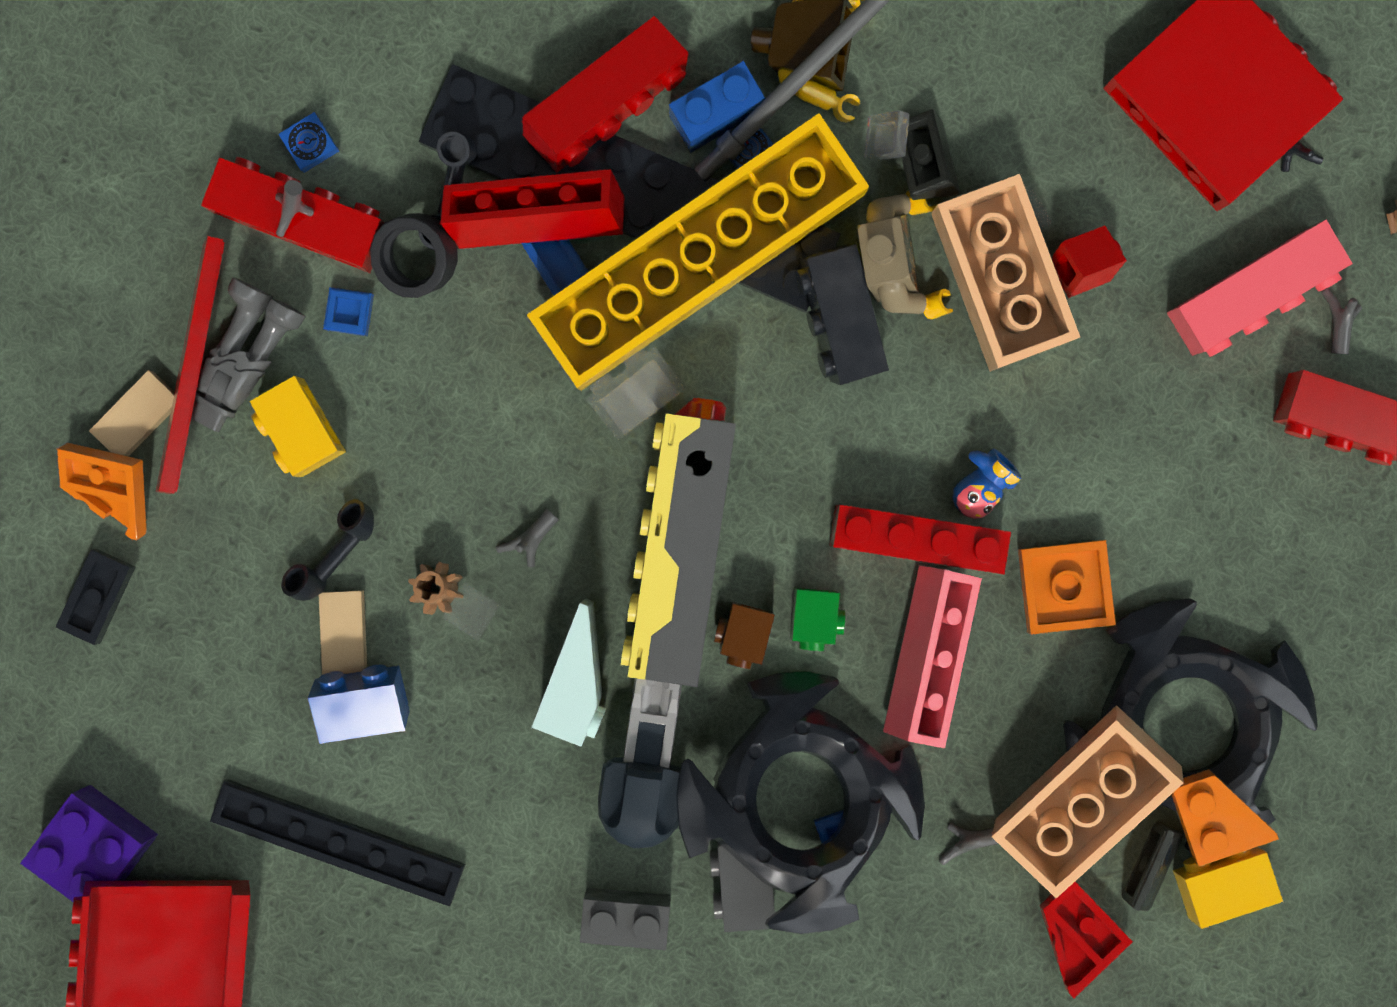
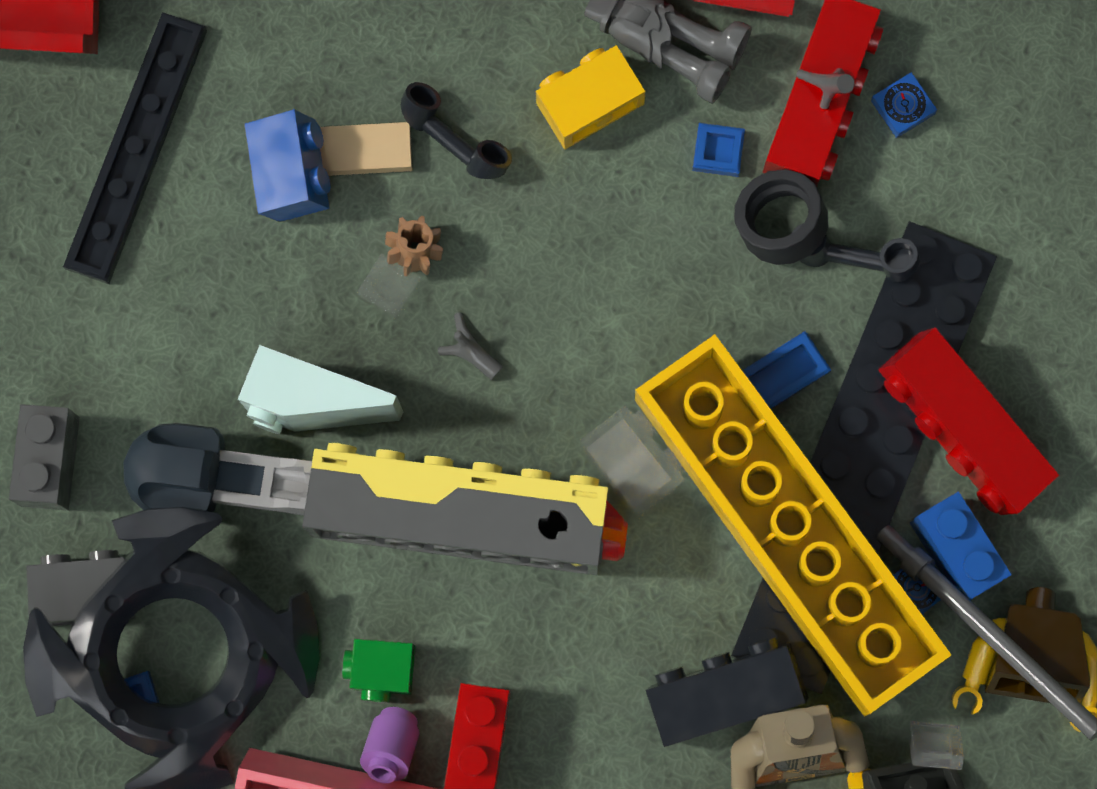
camera: 90 degrees right, 10 degrees down
(533, 209) = (835, 344): red brick -> none
(744, 635) = (361, 587): reddish brown brick -> none
(883, 608) = (390, 745): none -> medium lavender brick

